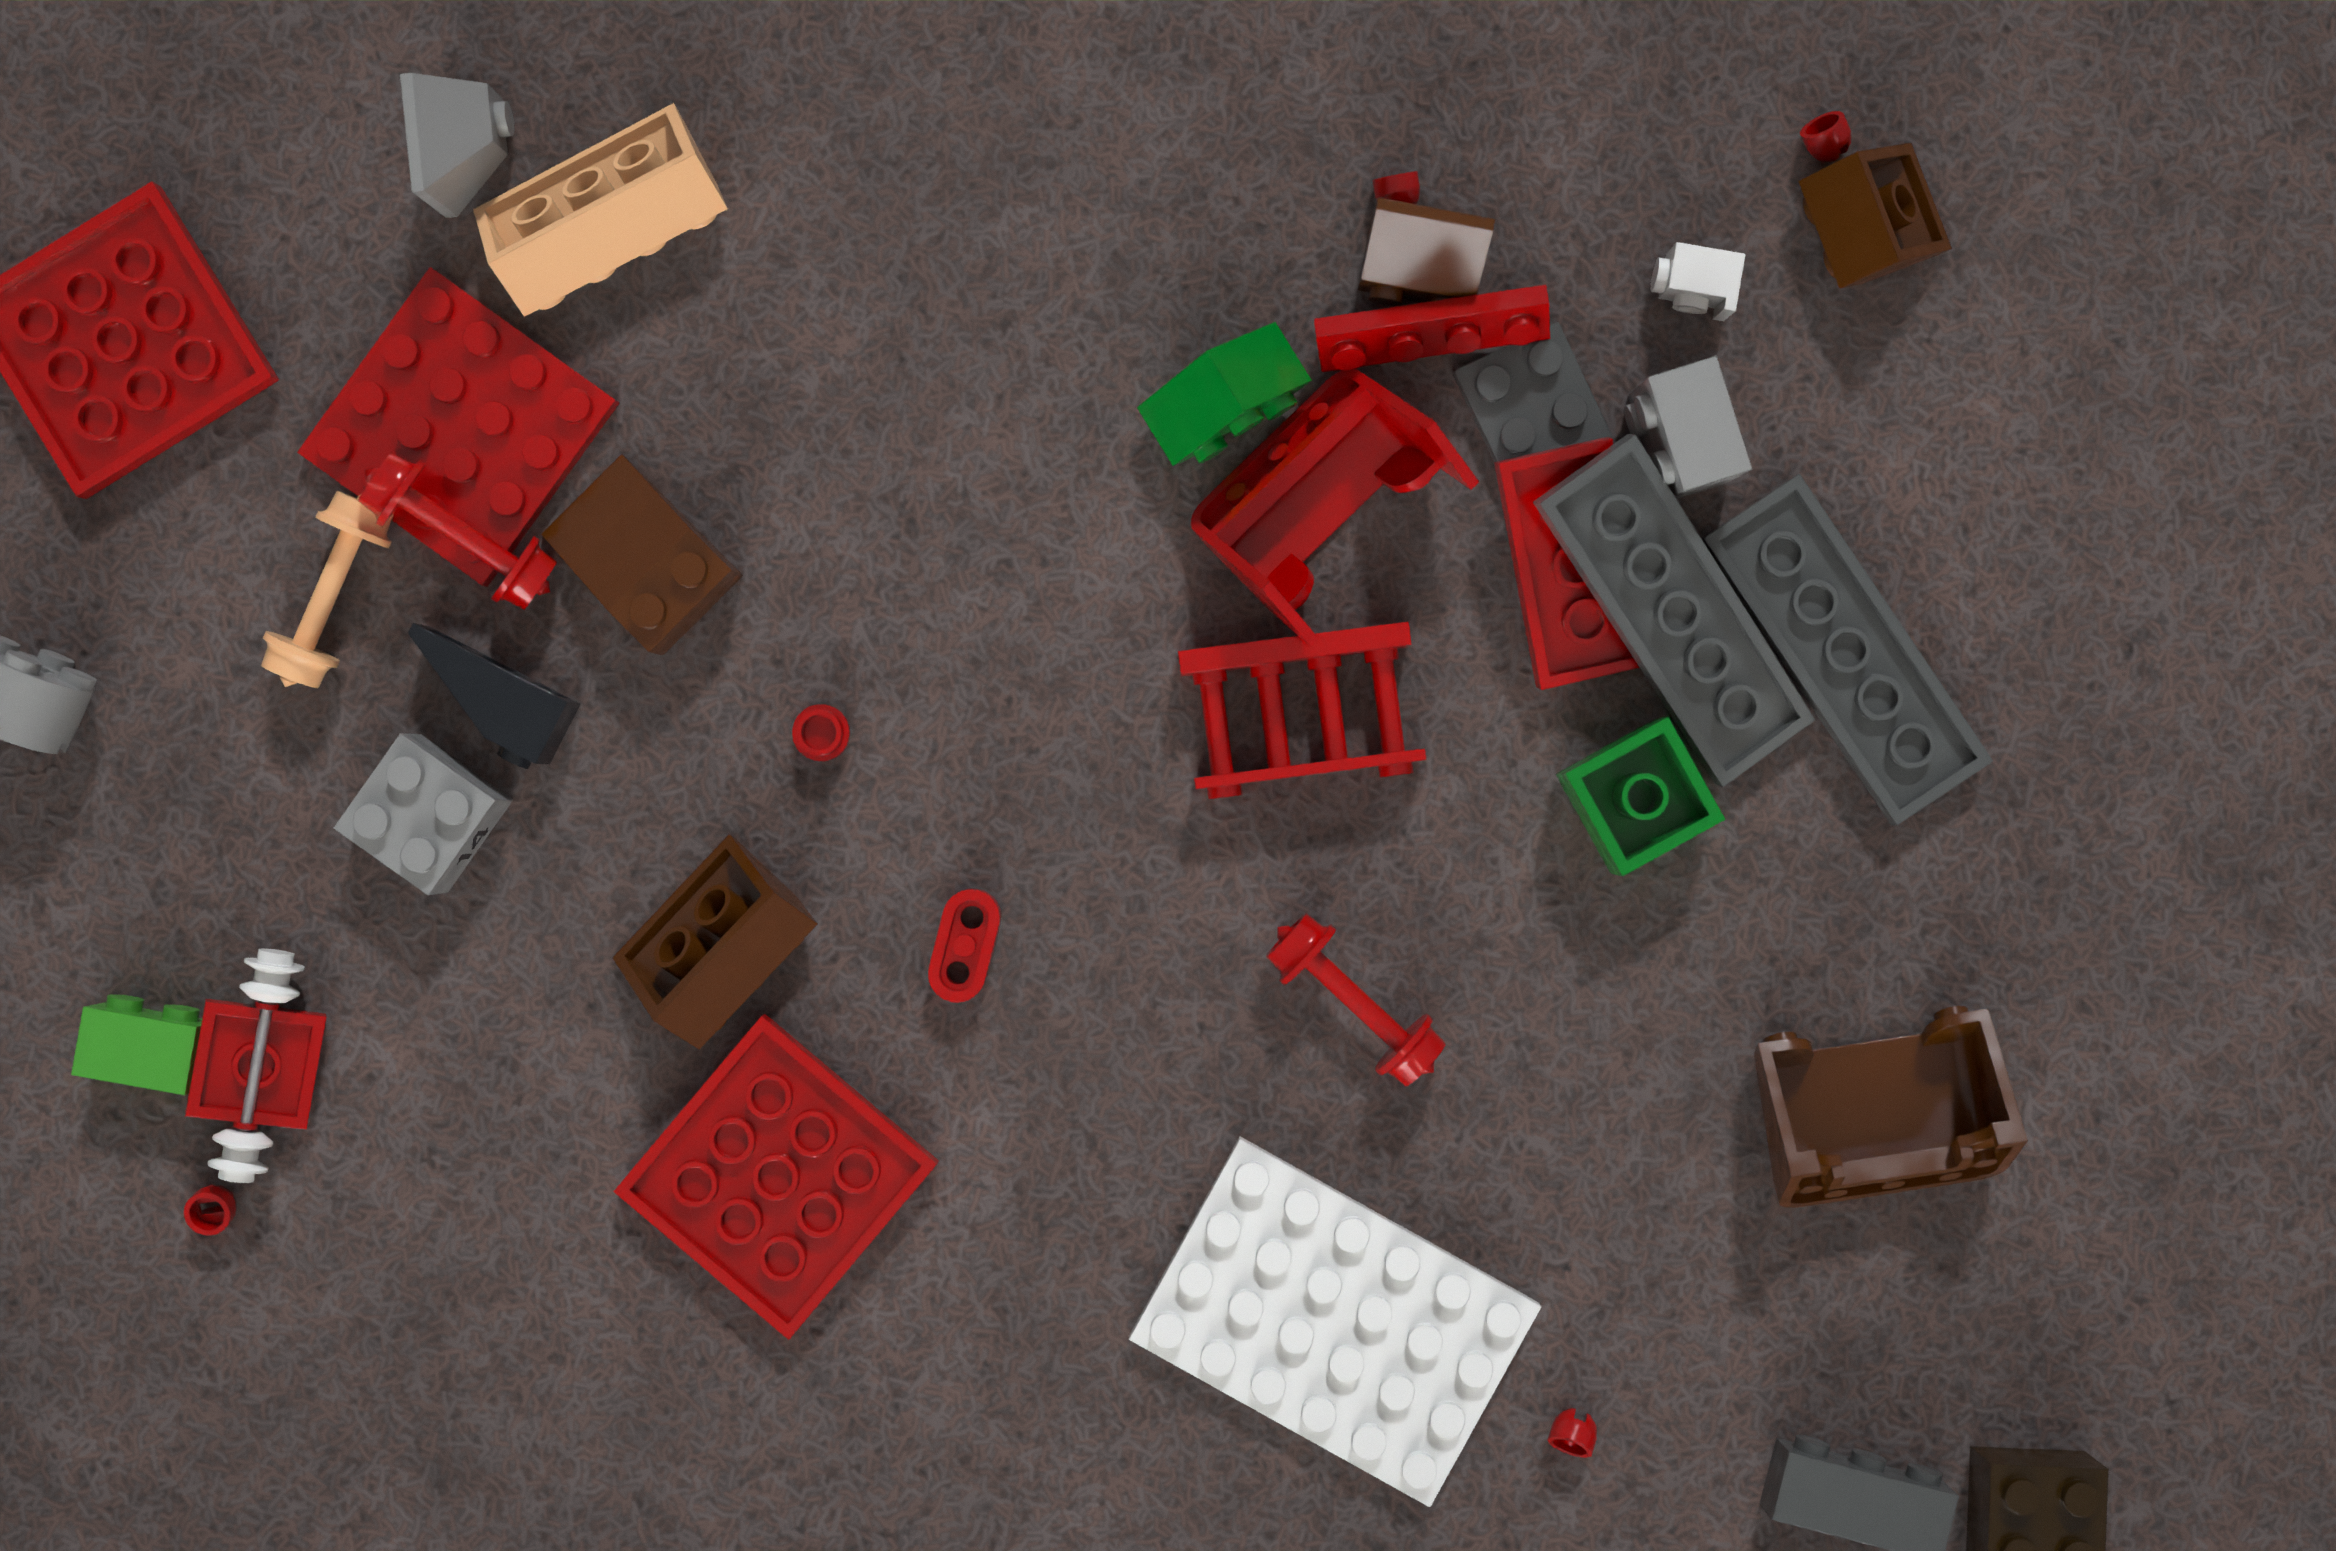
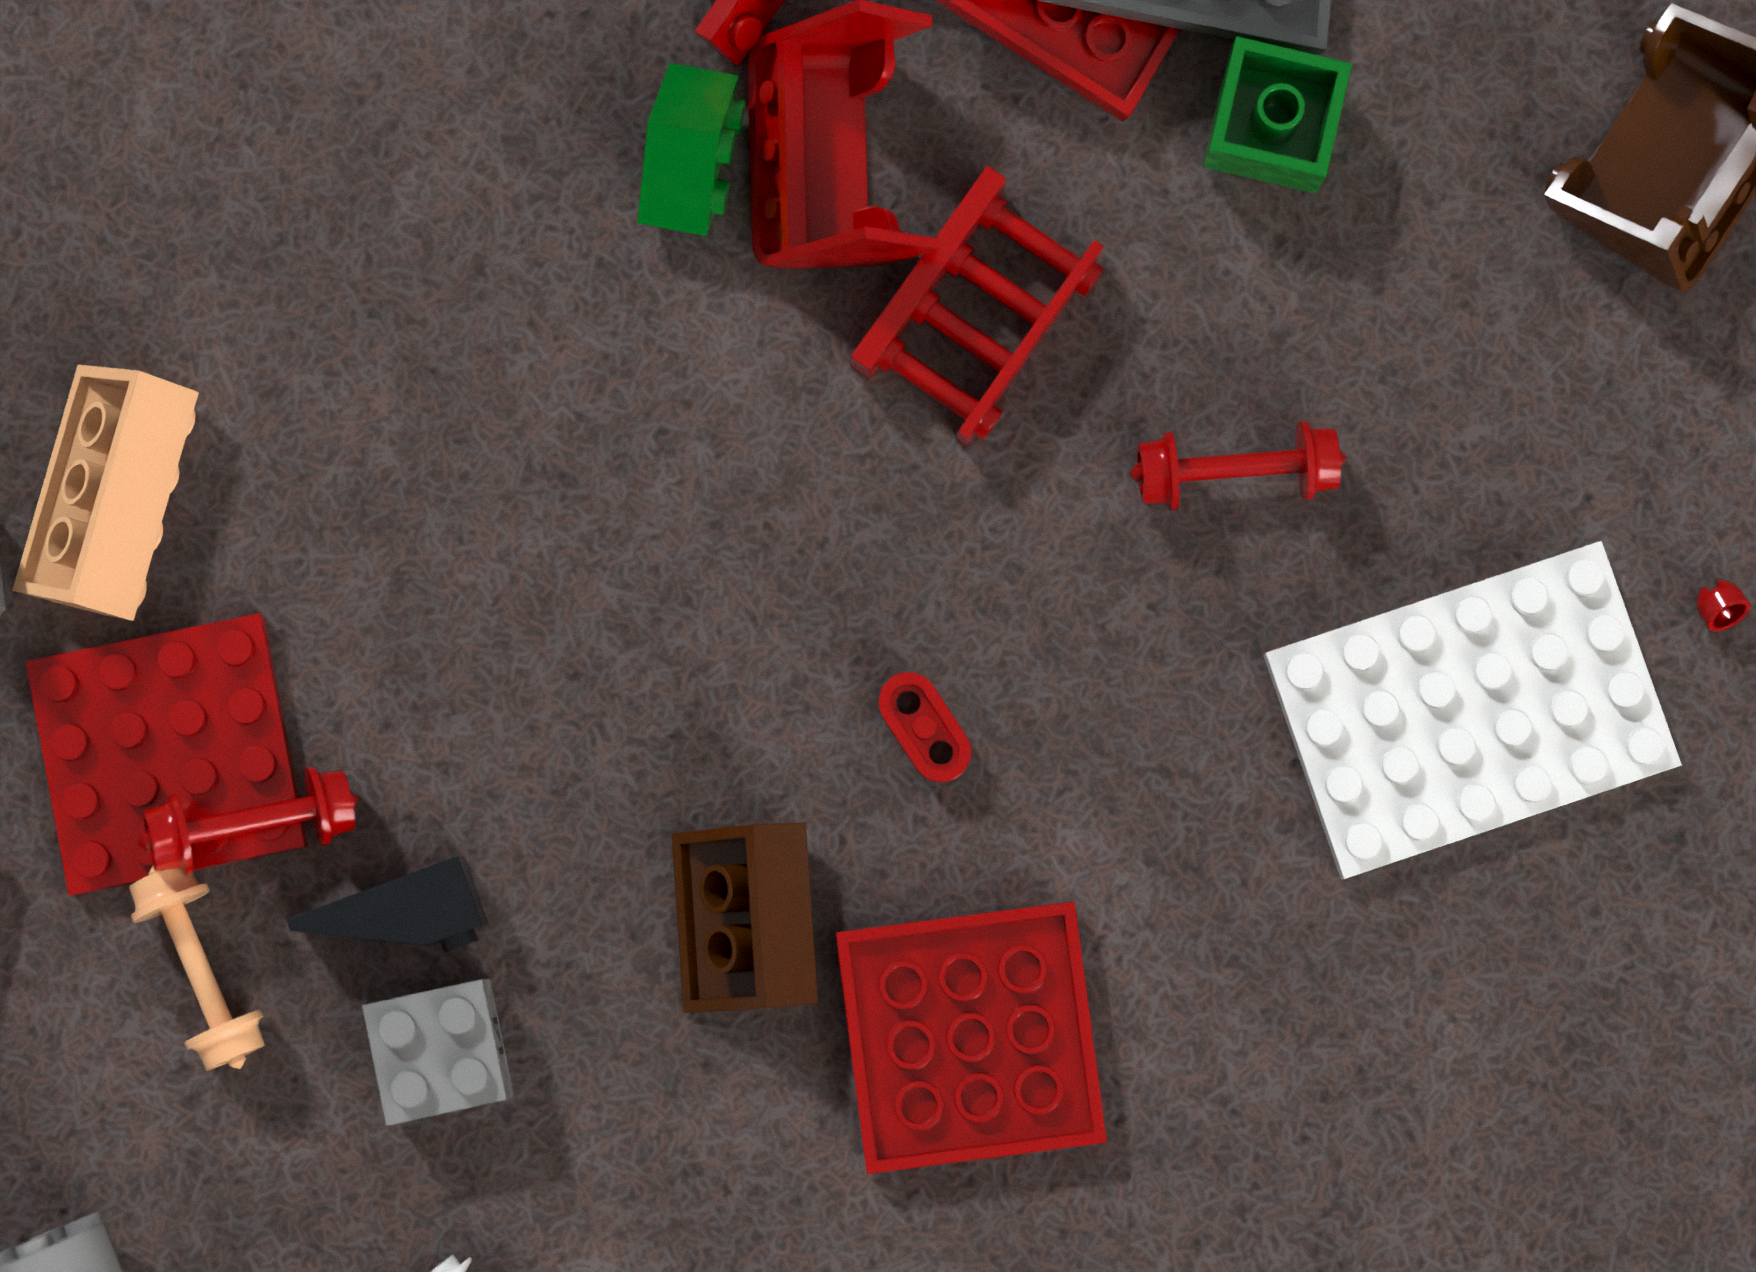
camera: 50 degrees left, 5 degrees down
(641, 556) = (396, 701): reddish brown slope -> none
(821, 732) = (660, 689): red plate -> none

